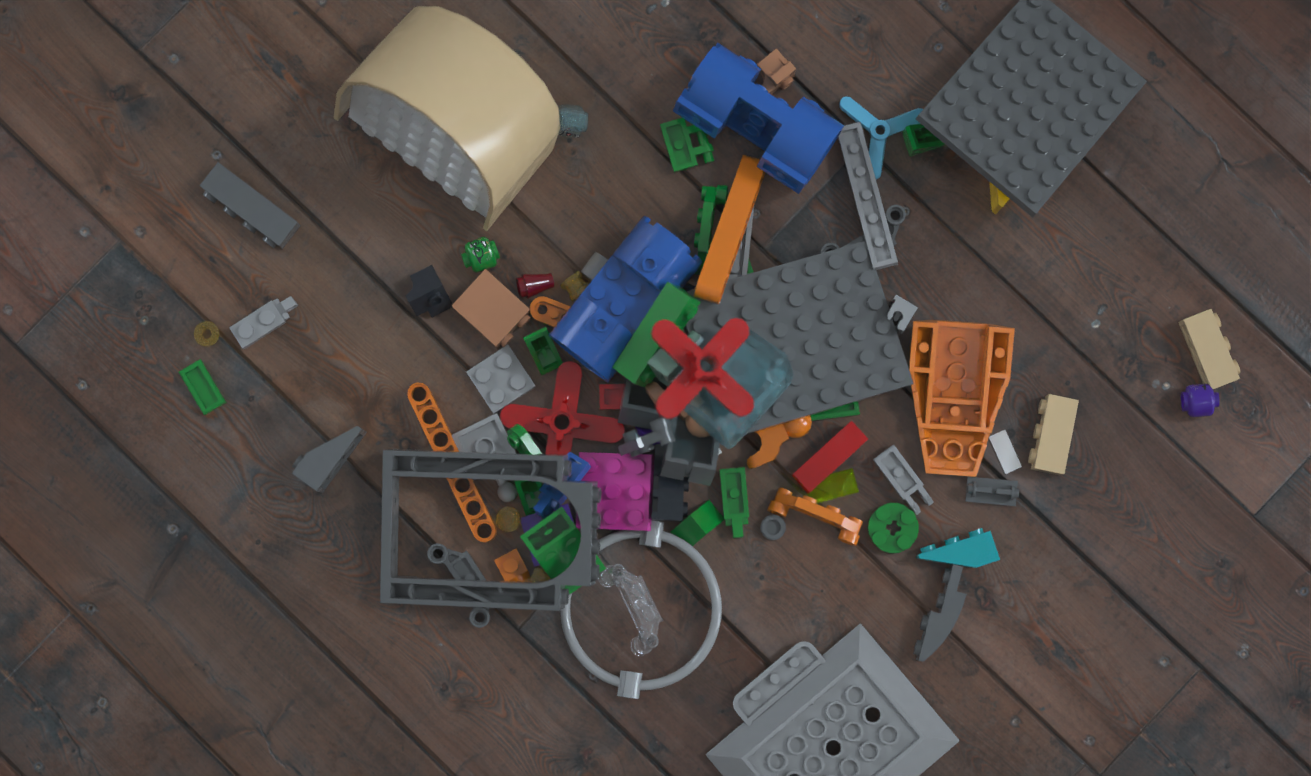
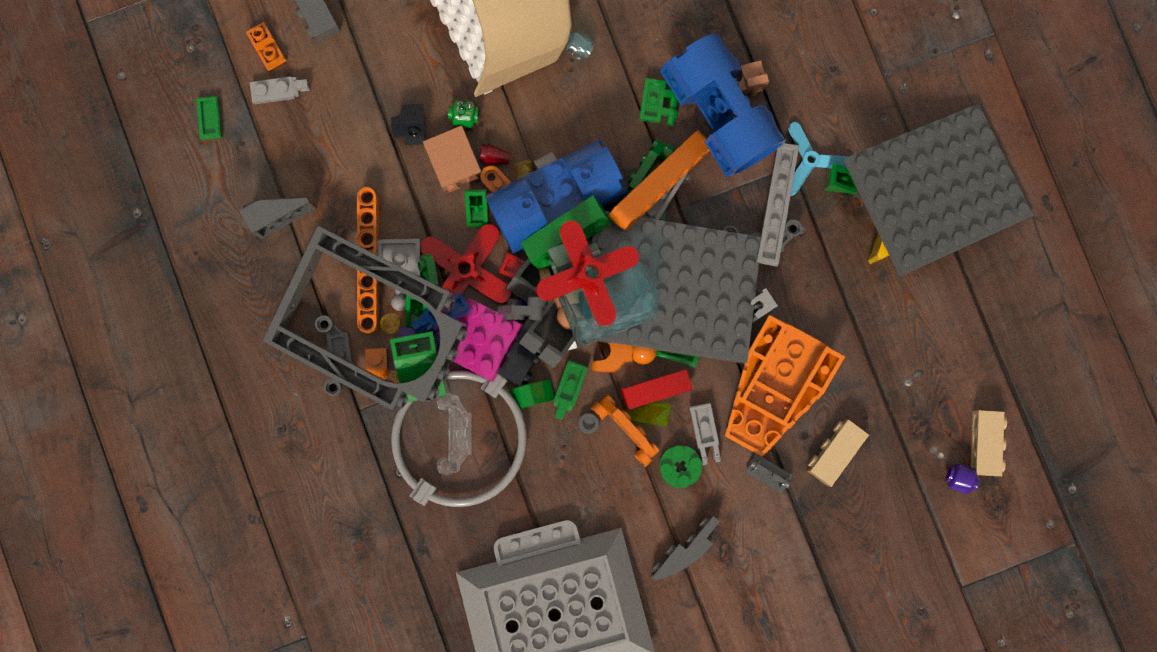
camera: 25 degrees right, 0 degrees up
(200, 328) = (225, 77): clear yellow plate -> none
(227, 279) = (266, 46): none -> orange slope
(501, 379) = (435, 215): light grey plate -> none
(969, 552) = (732, 513): teal slope -> none
(1005, 451) = (793, 448): white sticker -> none

